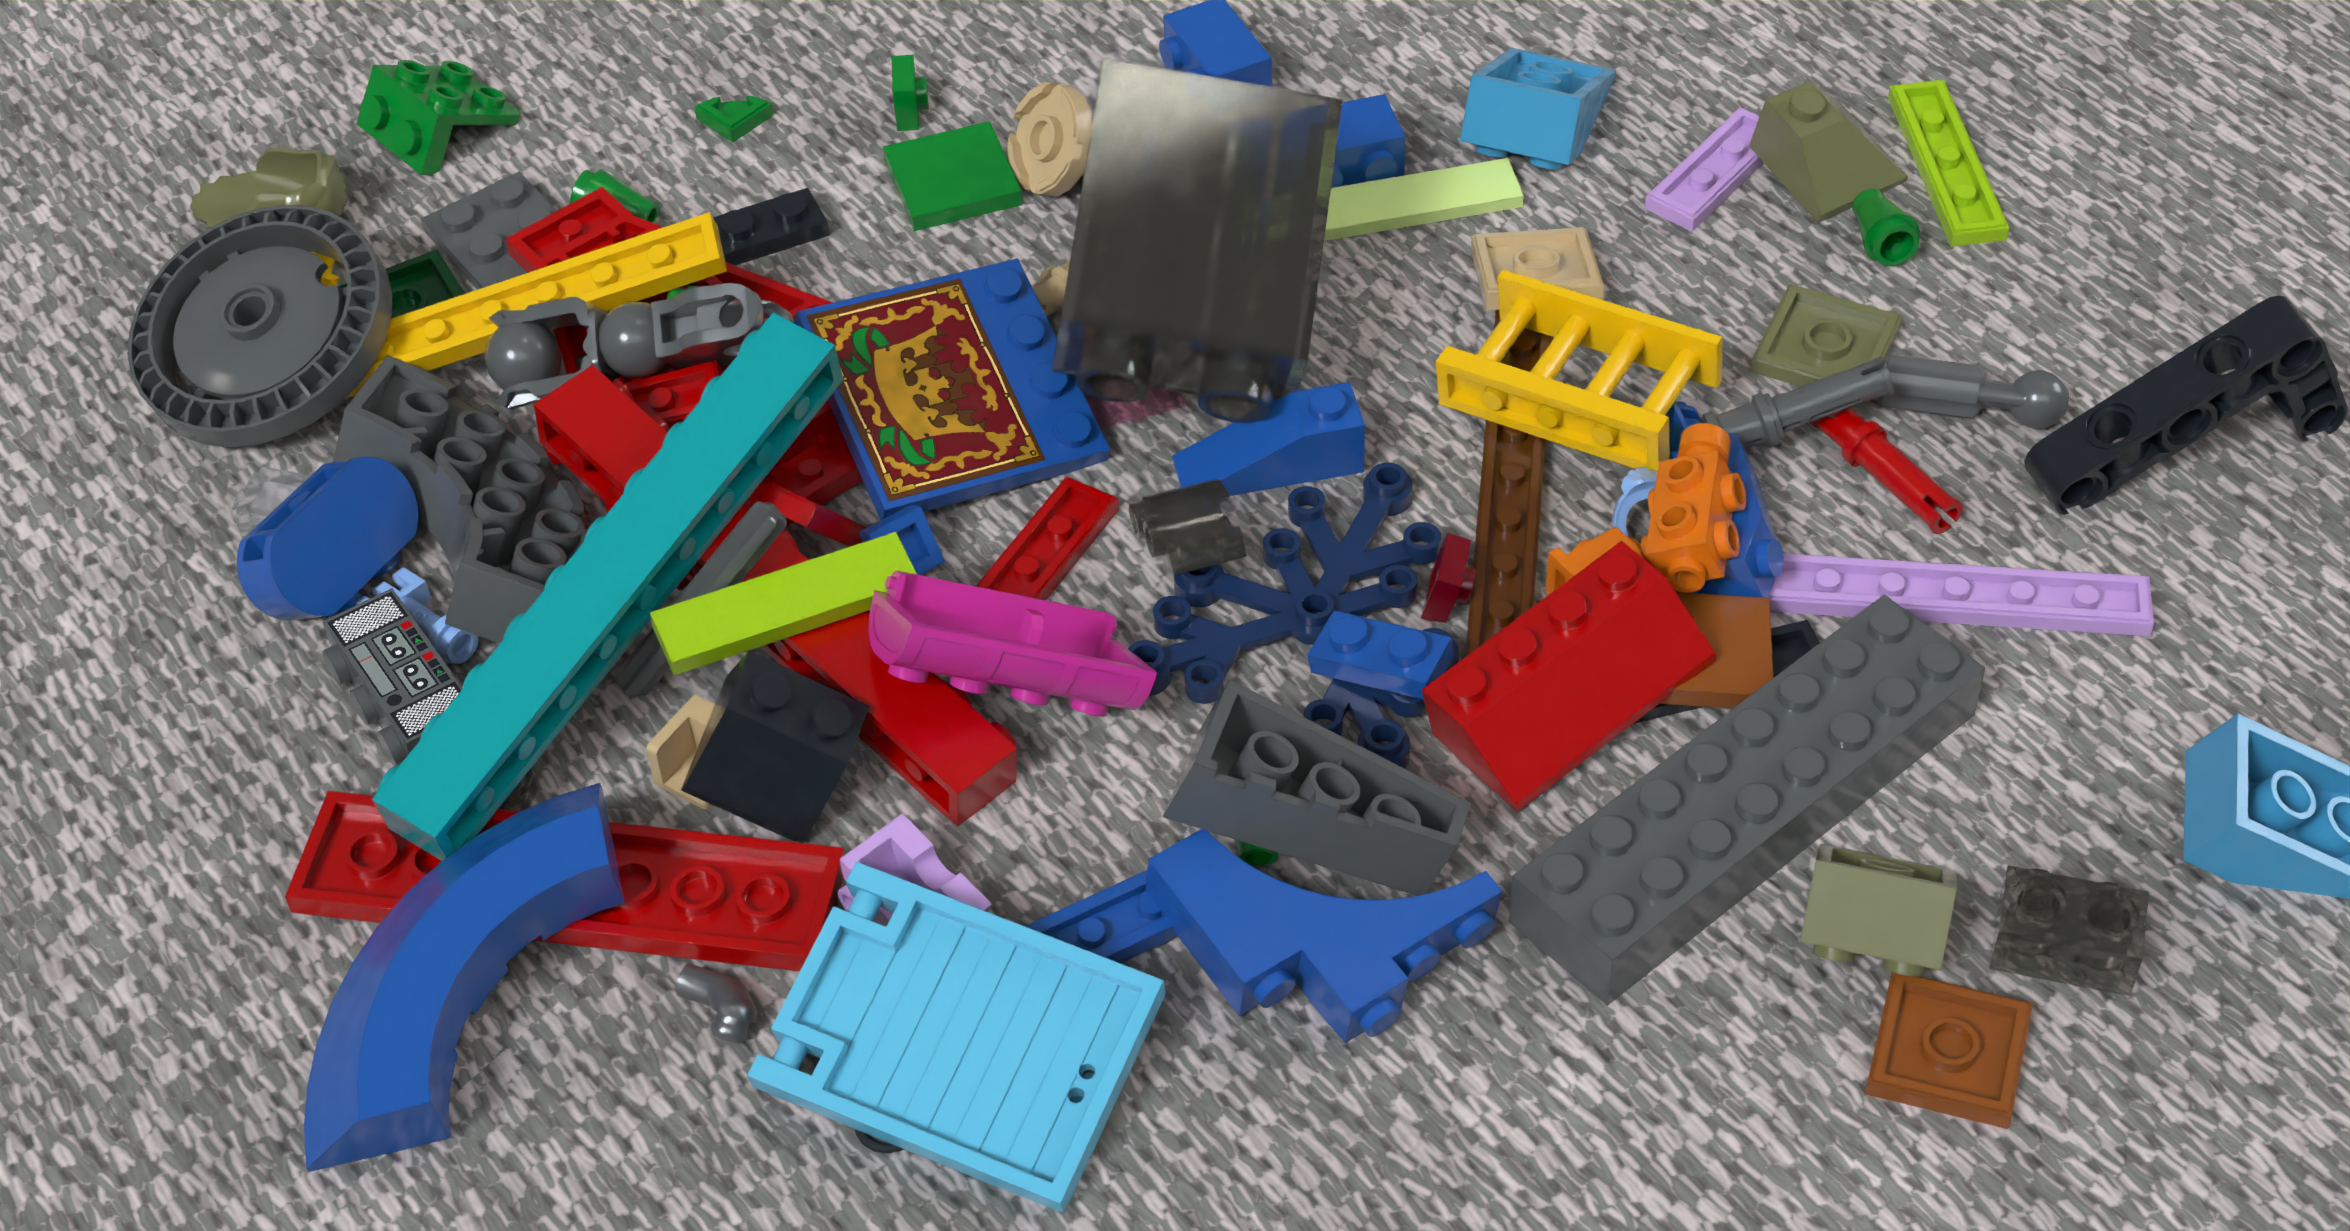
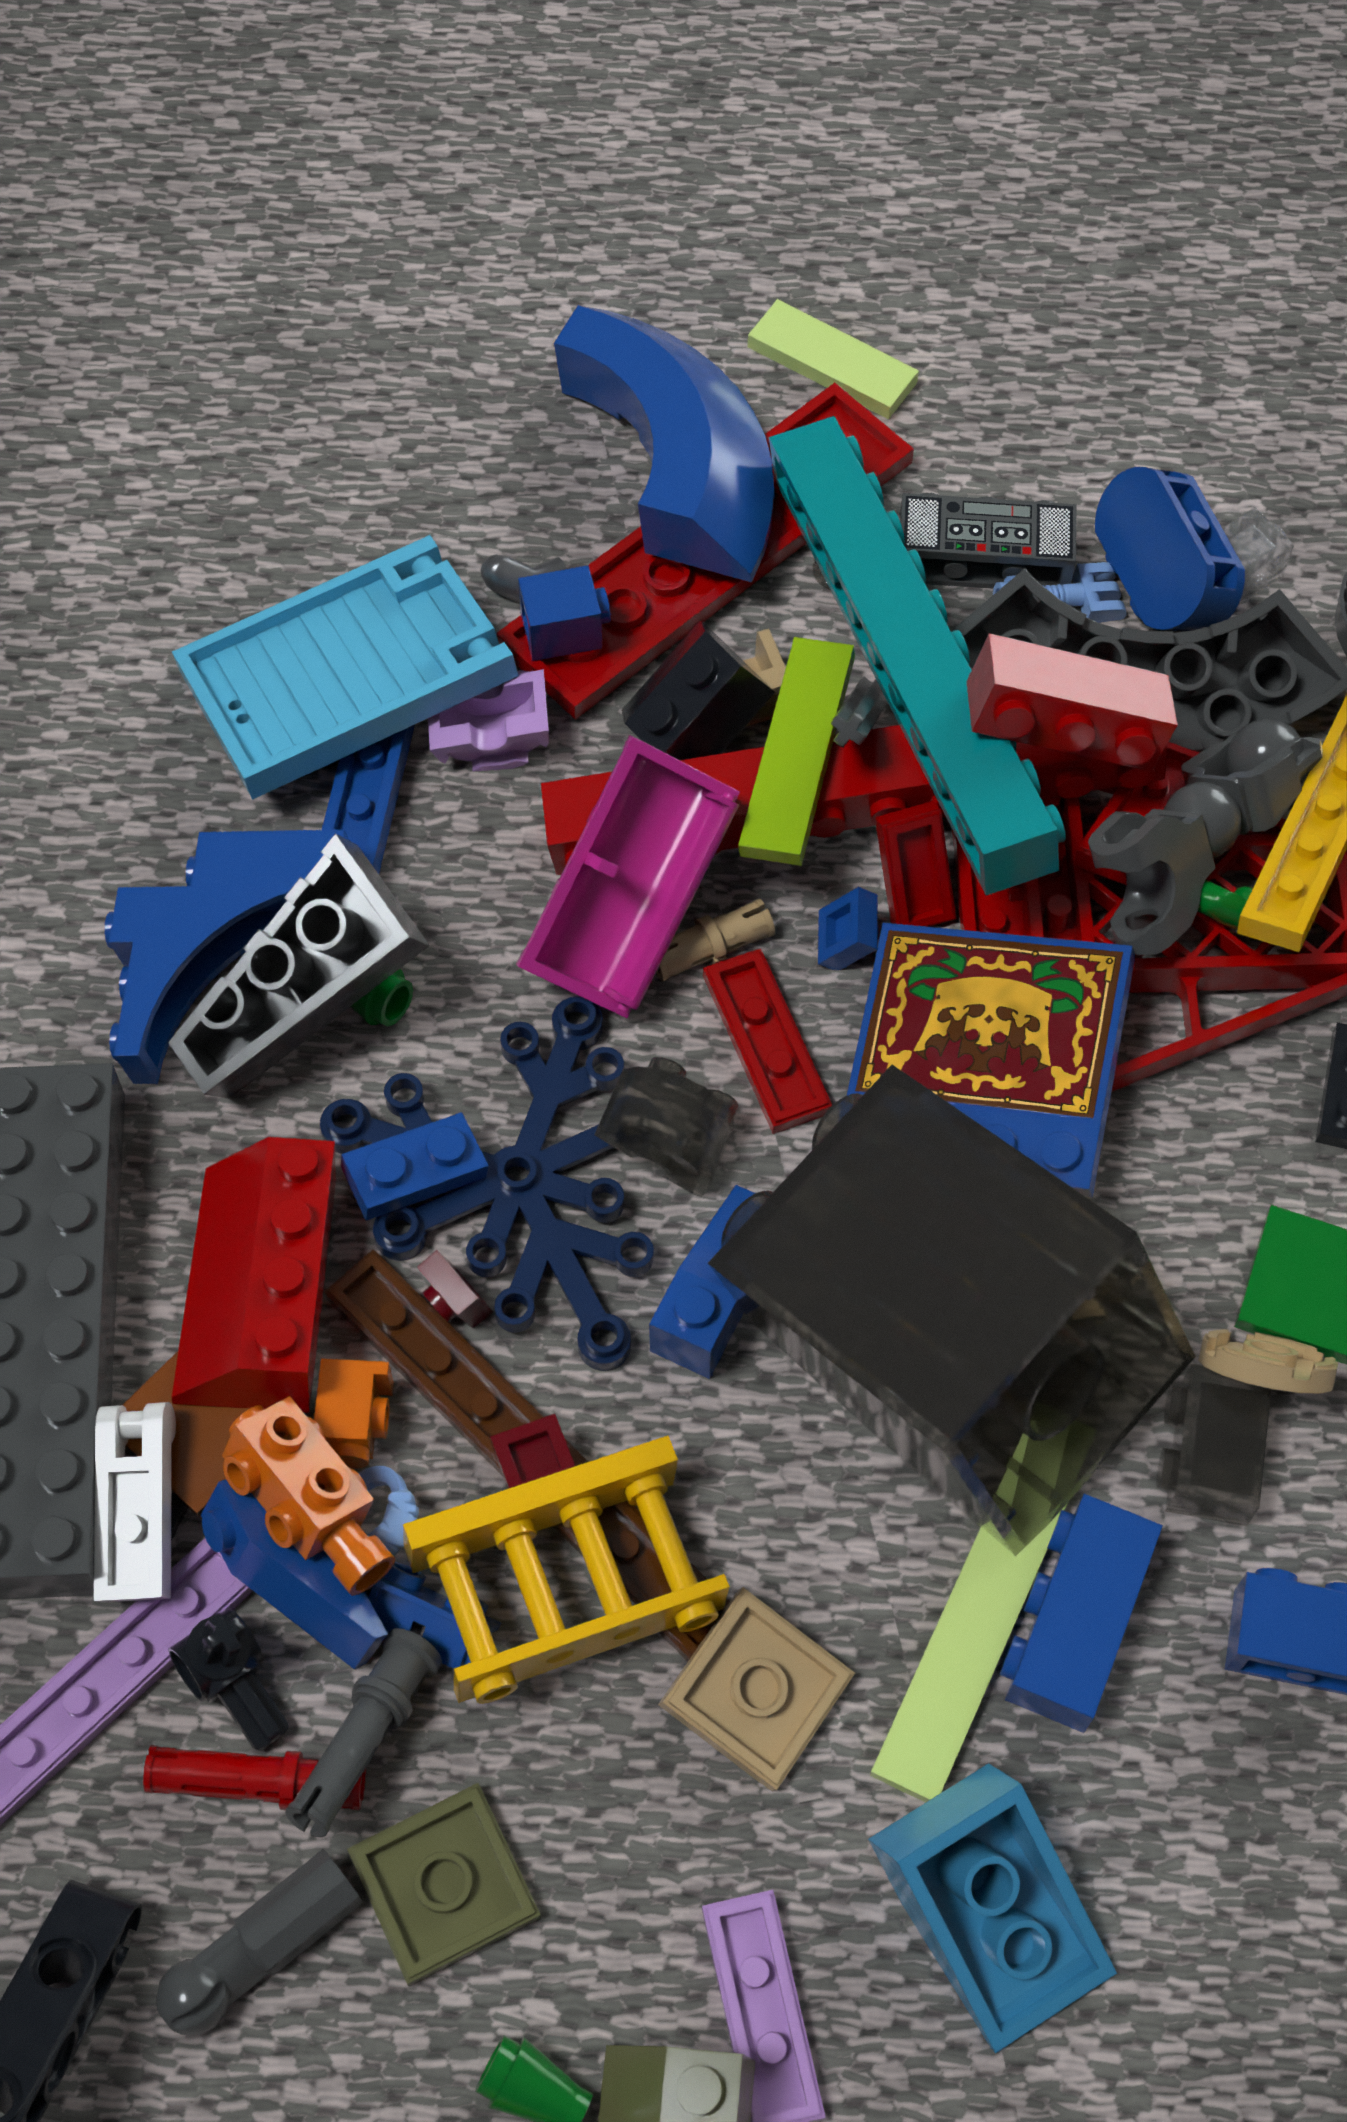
camera: 125 degrees right, 15 degrees up
(238, 942) = (831, 357): none -> yellowish green tile
(634, 380) = (1070, 703): none -> brick
(763, 890) = (562, 612): none -> blue brick
(1522, 442) = (531, 1451): none -> dark red plate
(1800, 619) = (133, 1504): none -> white plate
(1841, 517) = (221, 1664): none -> black axle

